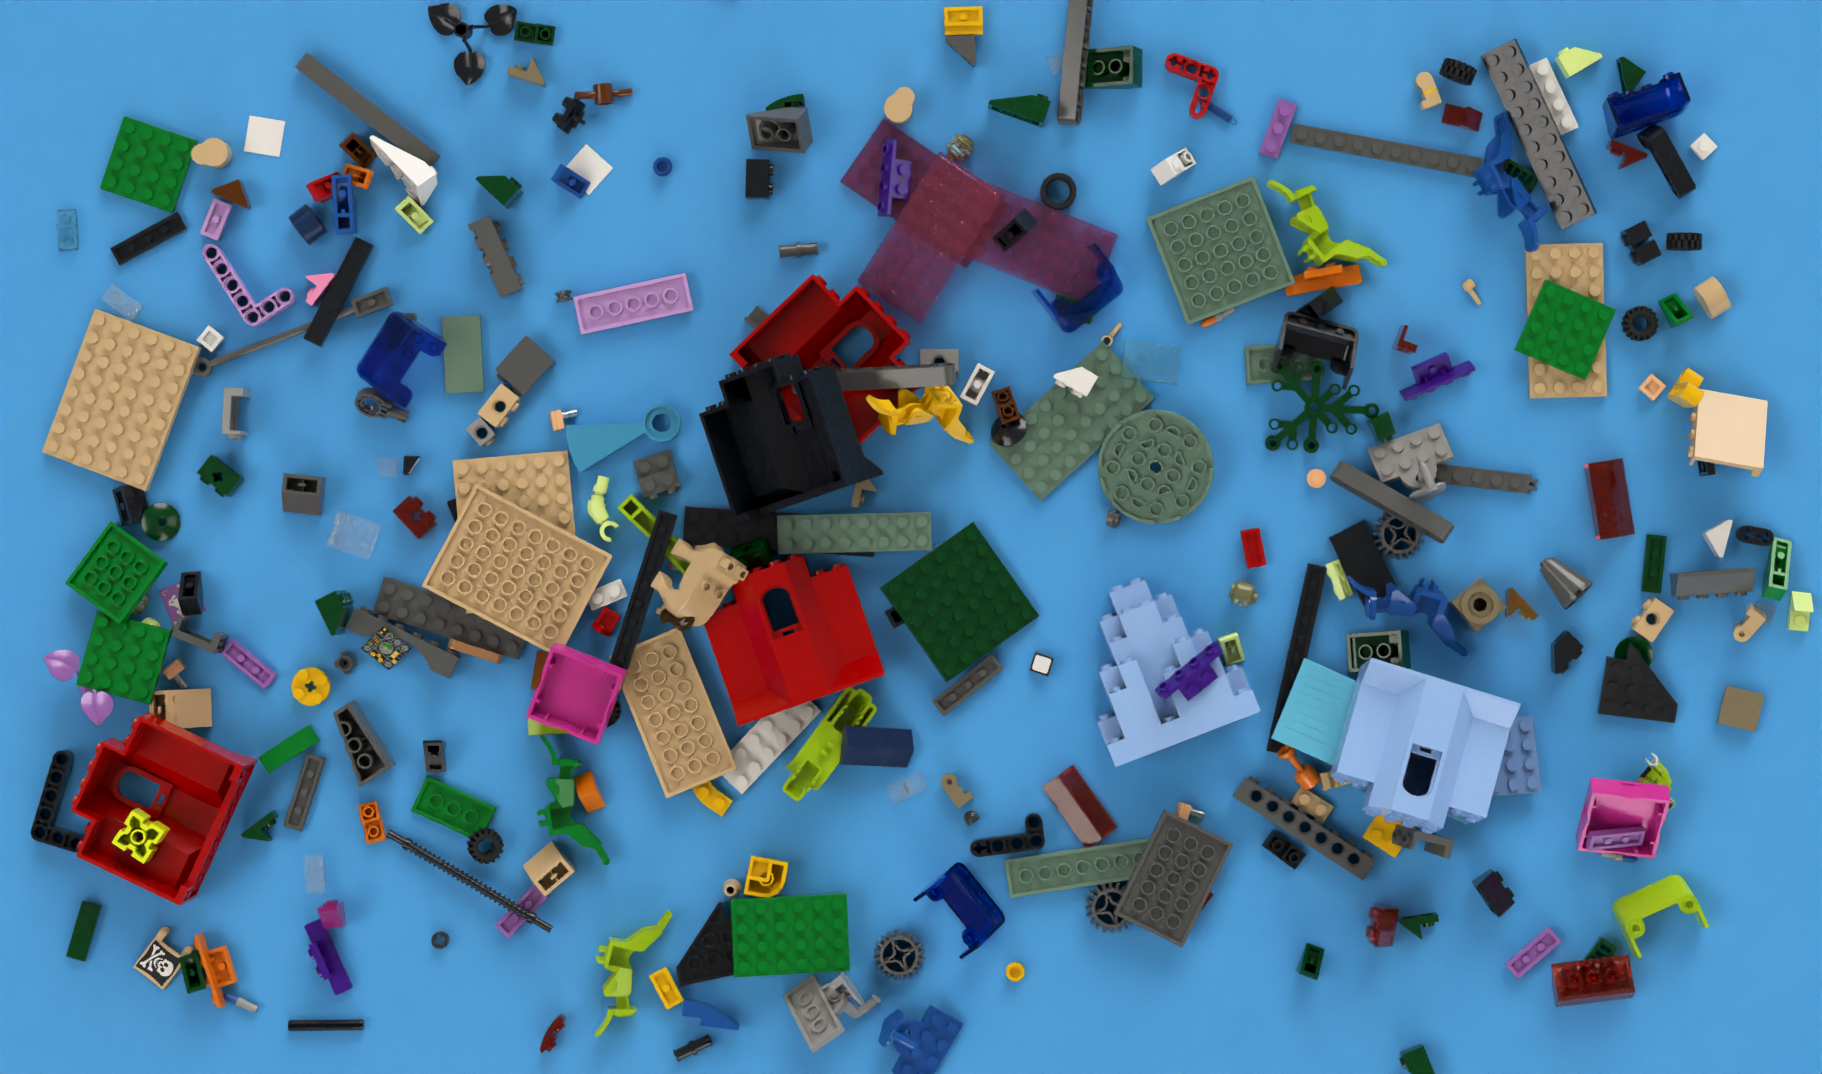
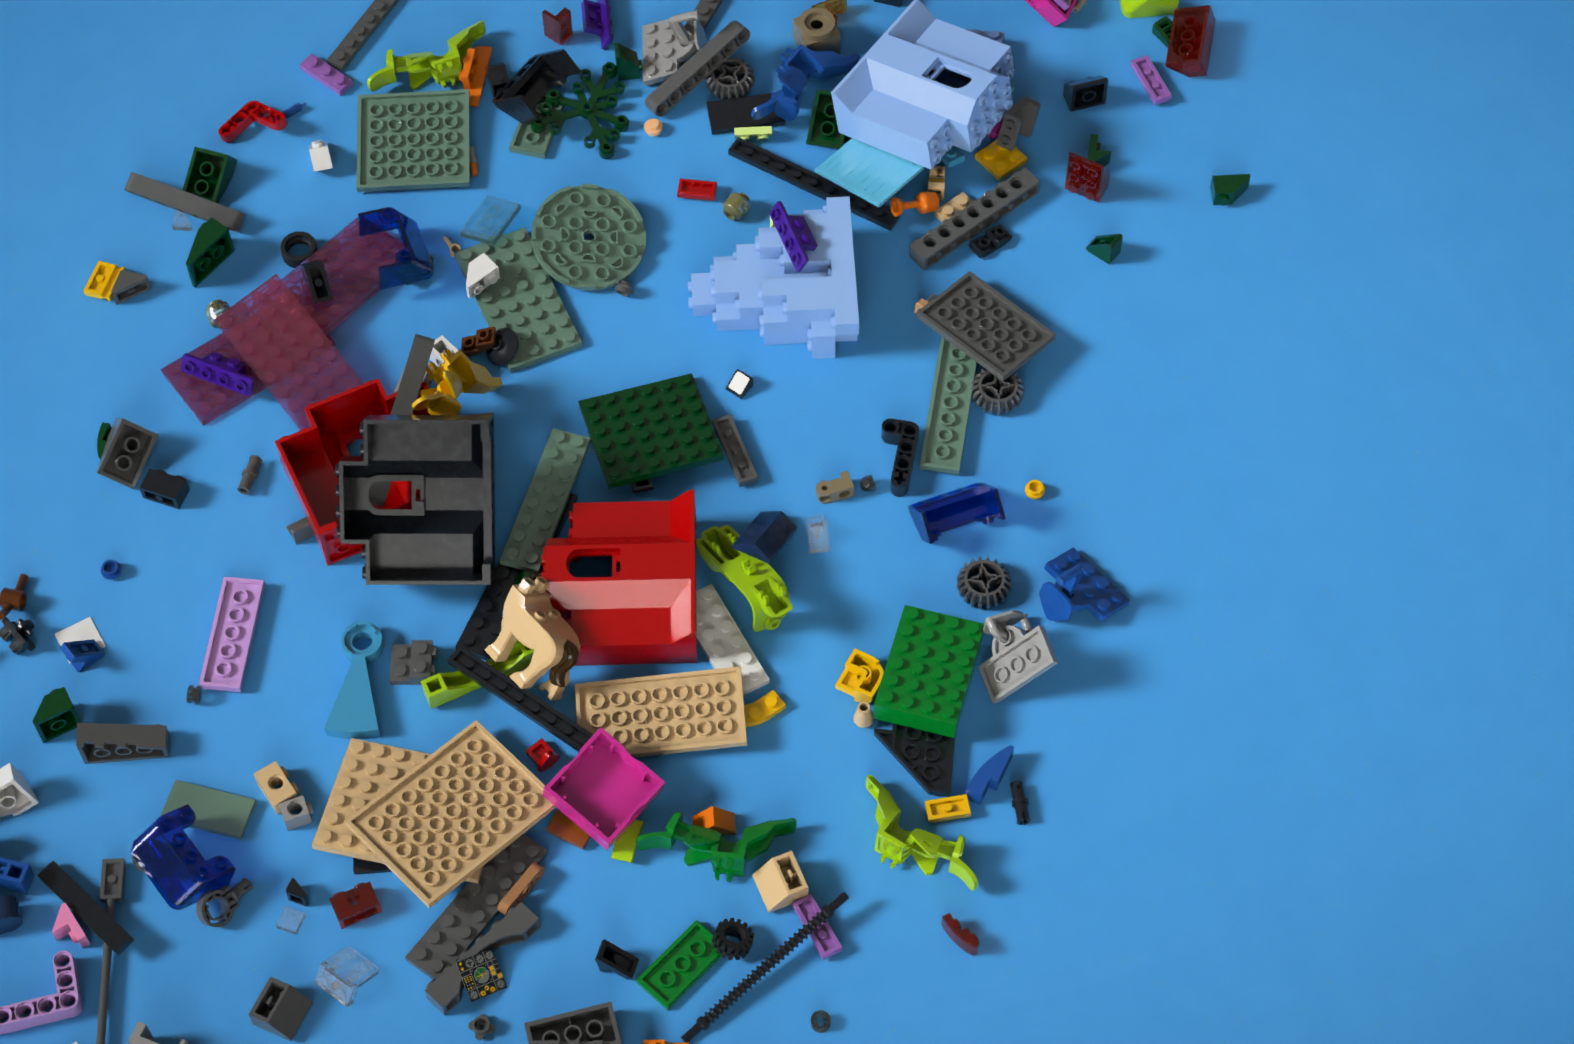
camera: 75 degrees left, 30 degrees down
(336, 611) = (420, 1005): dark green slope -> none
(414, 214) = (42, 807): yellowish green slope -> none
(524, 366) = (246, 749): dark grey panel -> none
(557, 418) = (316, 738): light nougat piece -> none
(597, 509) = (427, 727): yellowish green piece -> none
(607, 594) = (515, 742): white plate -> none
(858, 496) = (507, 487): dark tan slope -> none
(899, 106) = (156, 350): tan piece -> none
(1079, 807) = (890, 393): clear red slope -> none

